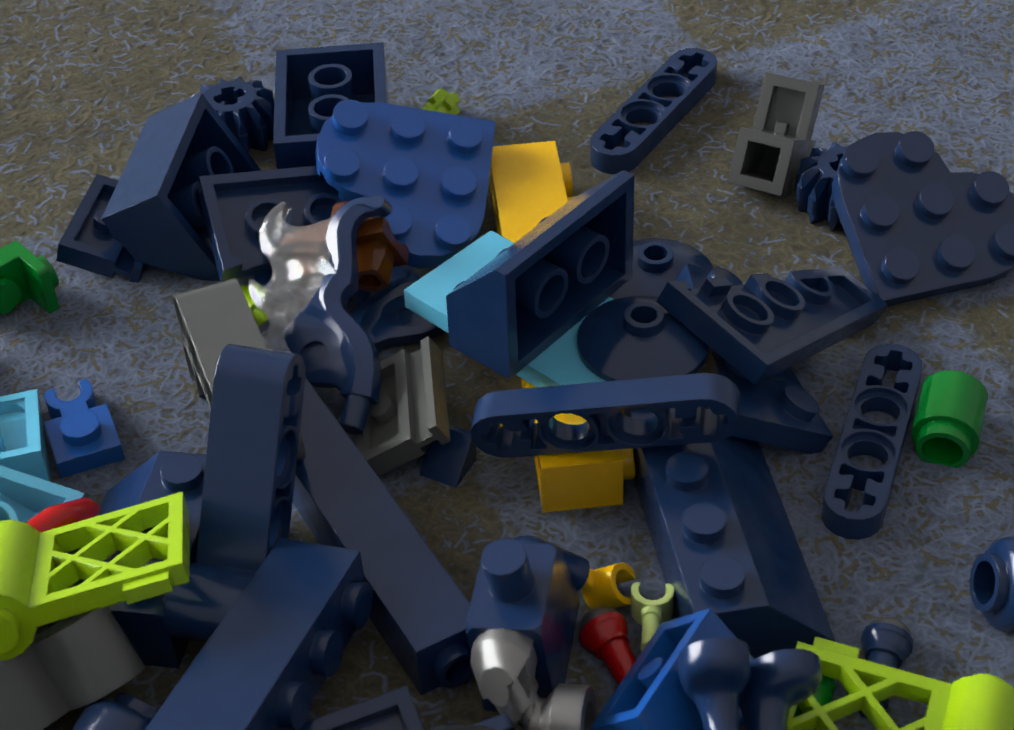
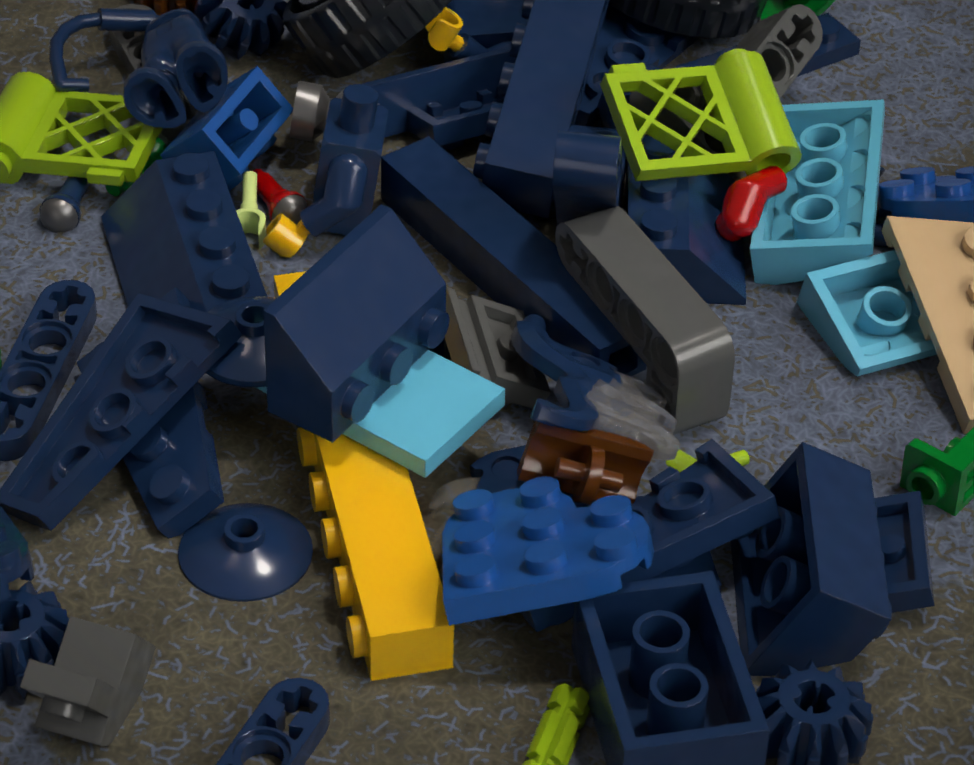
camera: 170 degrees right, 0 degrees up
(81, 432) = (799, 342): blue plate -> none
(507, 426) = (282, 263): dark blue beam -> none

